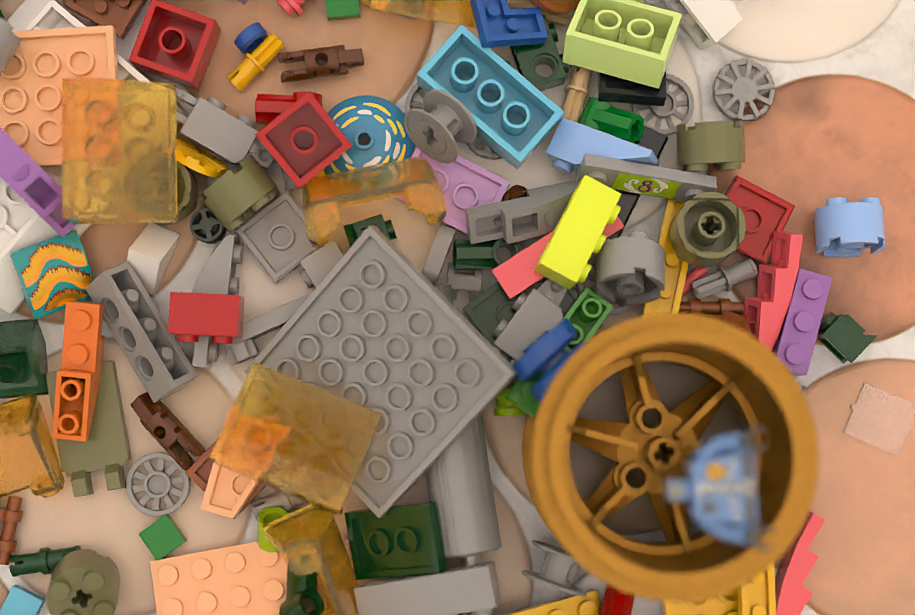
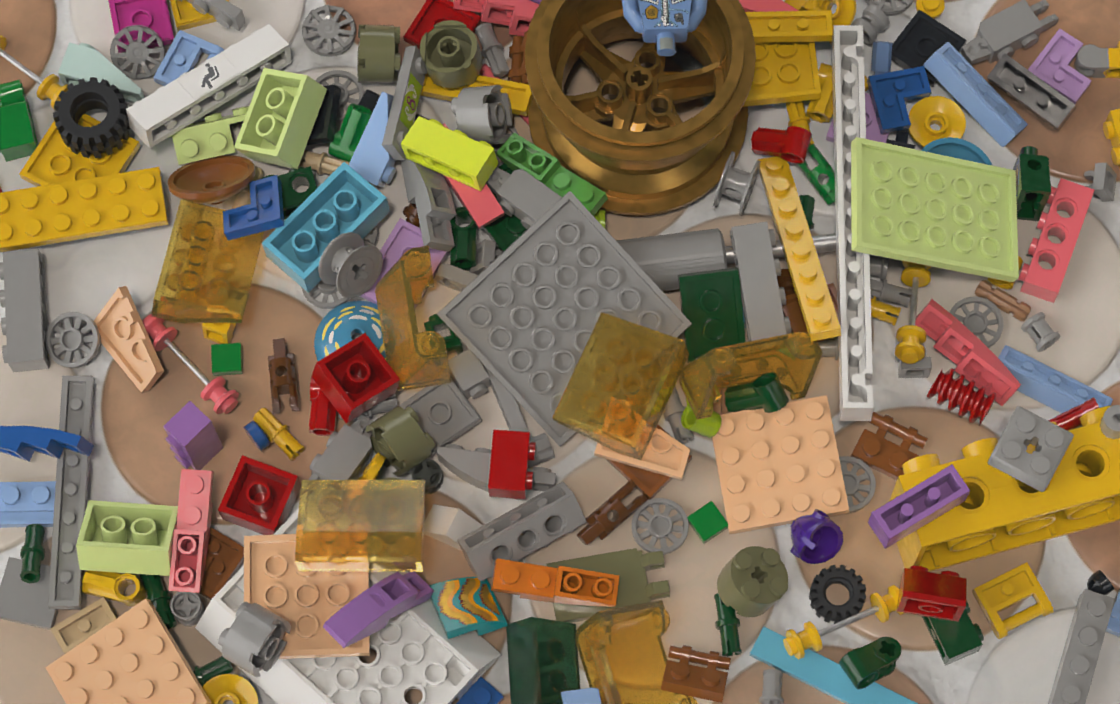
camera: 80 degrees left, 15 degrees down
(547, 356) = (560, 166): blue wheel -> none

